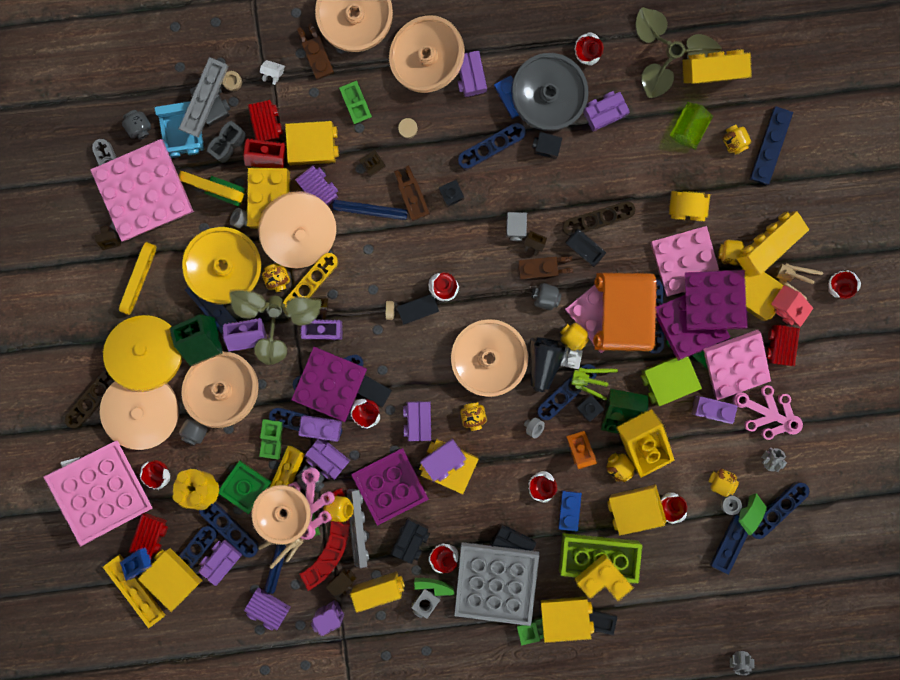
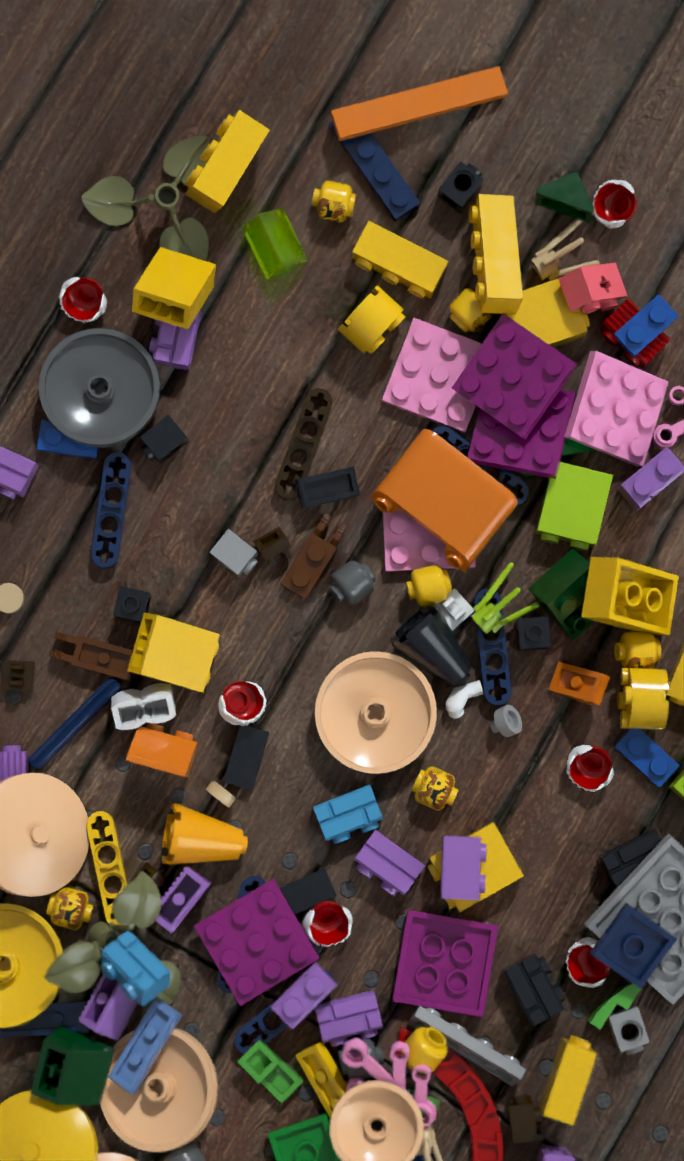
camera: 55 degrees left, 5 degrees down
(236, 367) = (145, 1046): none -> medium blue tile
(269, 333) = (134, 968): none -> dark azure brick
(359, 317) = (200, 838): none -> light orange cone
(389, 265) = (162, 750): none -> orange slope
(400, 234) = (135, 707): none -> white brick
(427, 381) = (348, 813): none -> dark azure brick
(443, 232) = (173, 652): none -> yellow brick
(469, 575) = (633, 945): none -> dark blue plate
(529, 393) = (459, 697): none -> white arm
(598, 488) = (643, 698): none -> yellow brick
(630, 90) = (173, 288): none -> yellow brick
(730, 196) = (399, 260): none -> yellow brick
(786, 203) = (460, 199): none -> black brick
(792, 348) = (645, 325): none -> blue plate
(821, 144) = (418, 103): none -> orange tile
(828, 258) = (566, 197): none -> dark green slope

